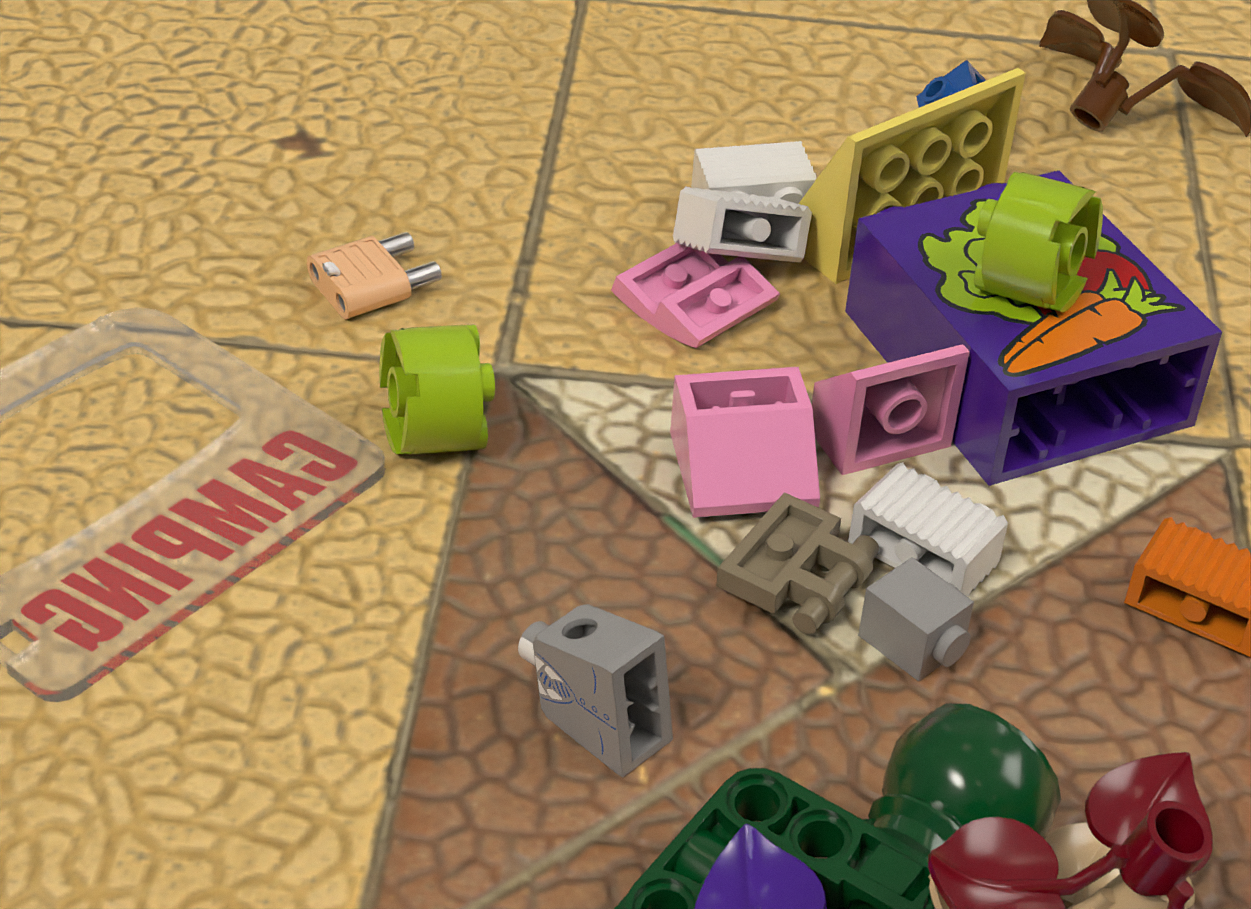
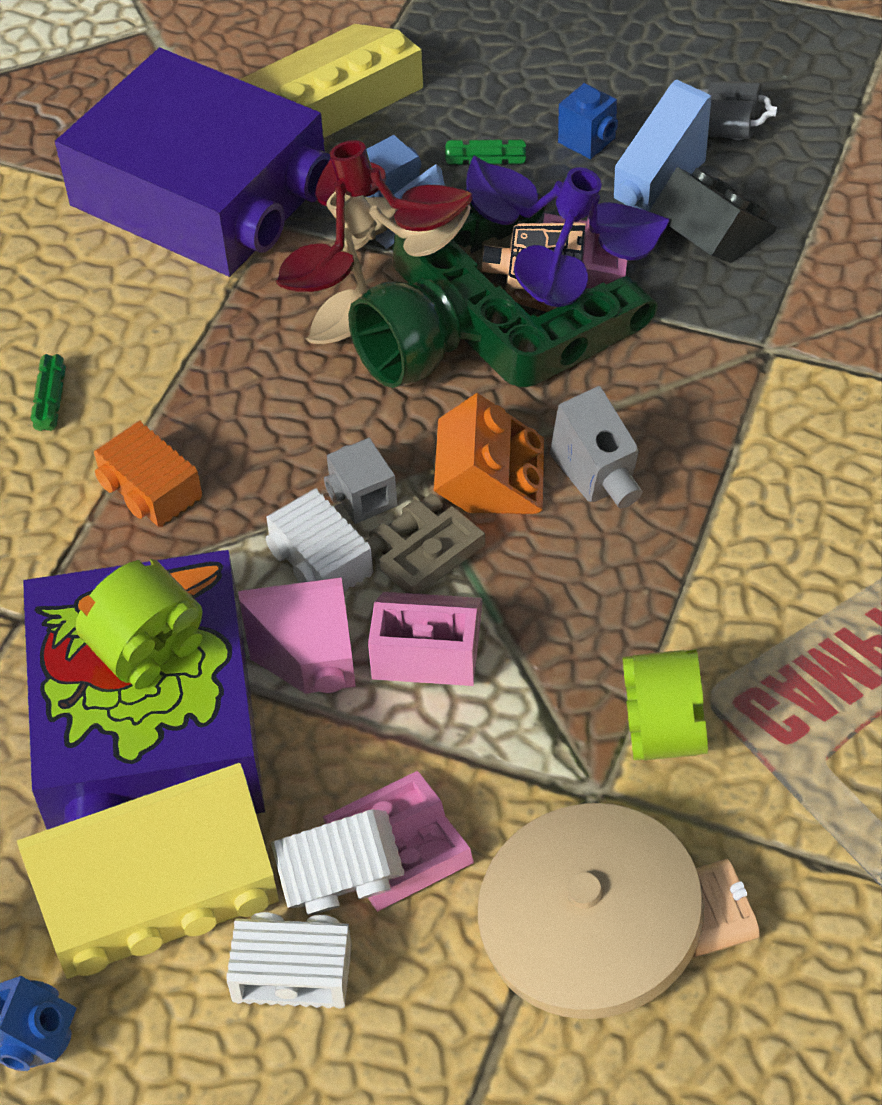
camera: 160 degrees left, 10 degrees up
(479, 250) = (591, 910): none -> tan dish
(751, 670) = (488, 460): none -> orange slope

